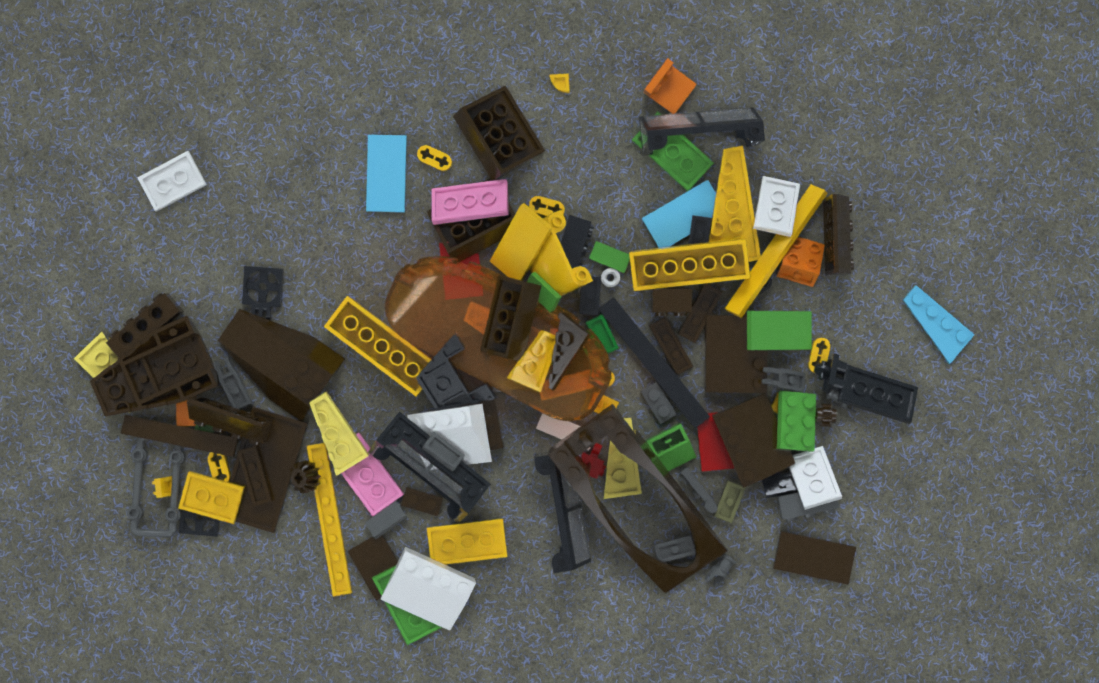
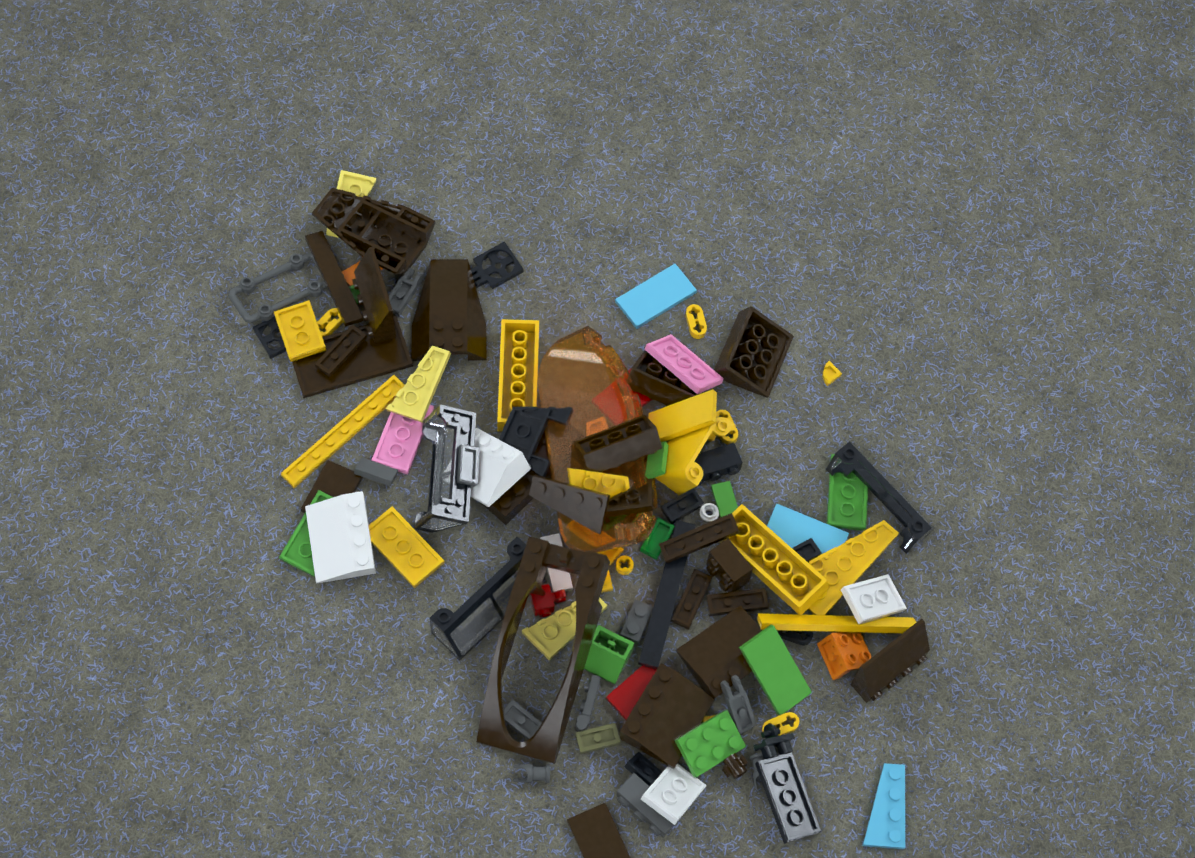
camera: 50 degrees right, 25 degrees down
(162, 486) = (283, 291): yellow tile -> none
(170, 311) = (413, 199): dark brown brick -> none
(172, 181) = (529, 156): white tile -> none
(304, 476) = (367, 386): dark brown gear -> none
(422, 501) = (411, 491): dark brown plate -> none
(538, 391) = (575, 502): none -> dark brown wing
(633, 308) = (699, 538): none -> dark brown plate
(669, 87) = (895, 451): orange bracket -> none

